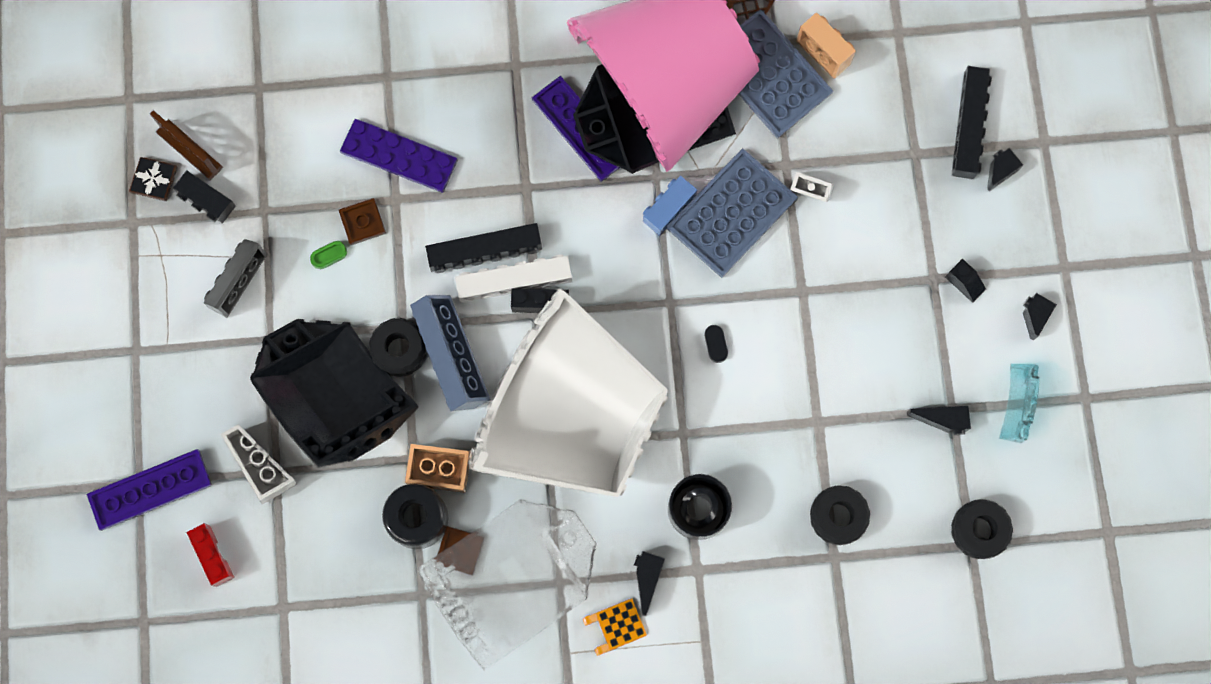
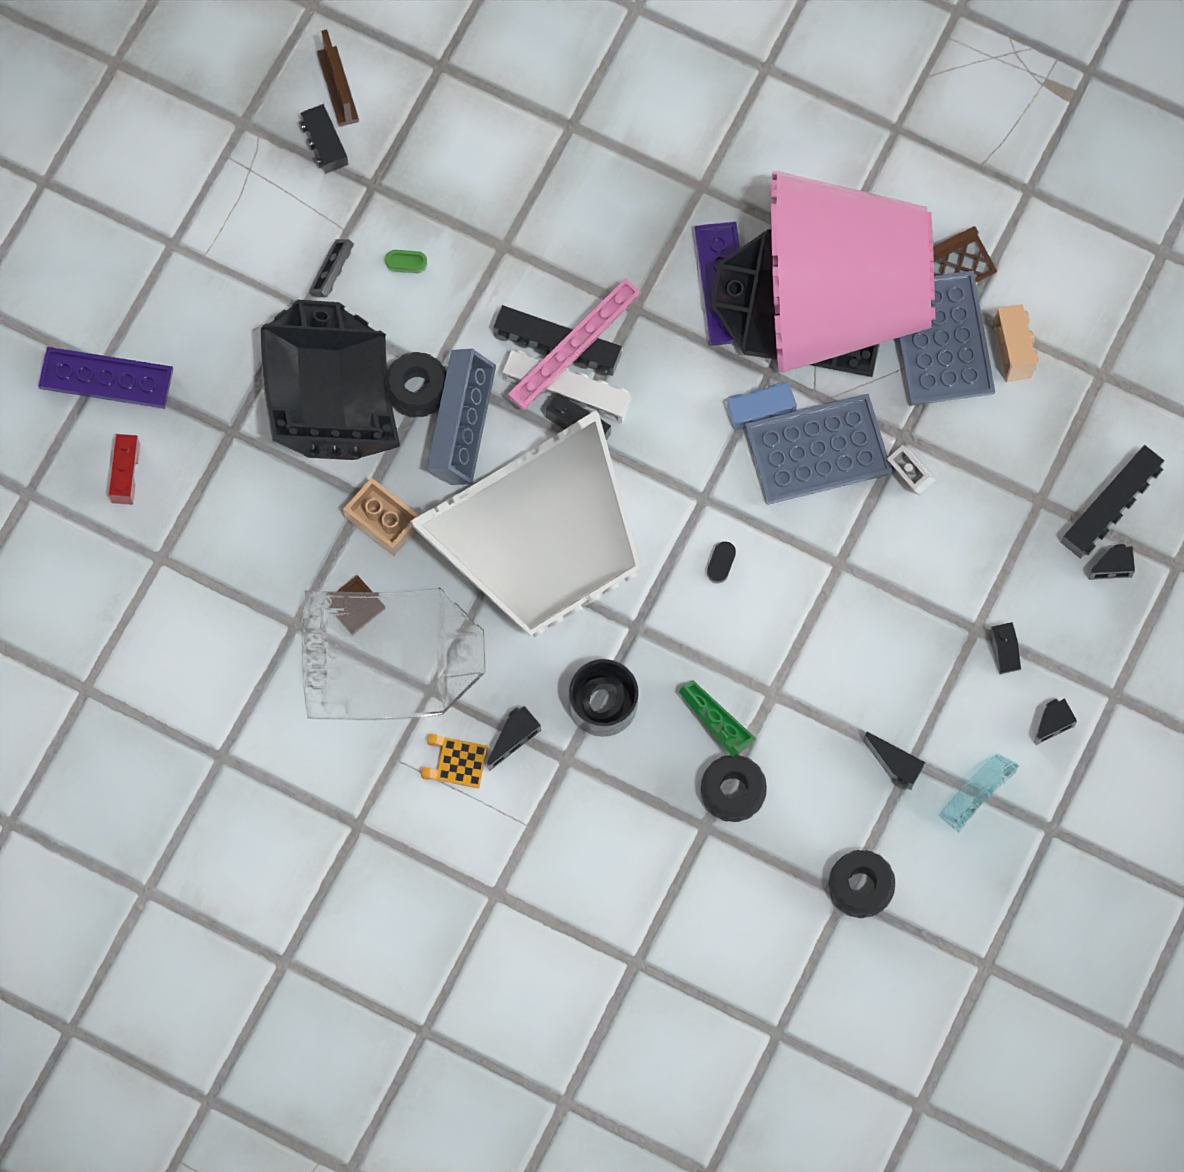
camera: 30 degrees right, 5 degrees down
(153, 179) = (287, 94): tile -> none
(235, 277) = (306, 230): dark grey slope -> none
(262, 472) = (218, 419): white wedge -> none
(274, 295) = (331, 268): none -> black plate
(362, 221) = (457, 249): reddish brown tile -> none
(398, 155) = (532, 207): dark purple plate -> none
(425, 534) = (335, 568): black piece -> none
(501, 243) = (574, 344): none -> bright pink plate
(796, 469) = (721, 723): none -> green wing

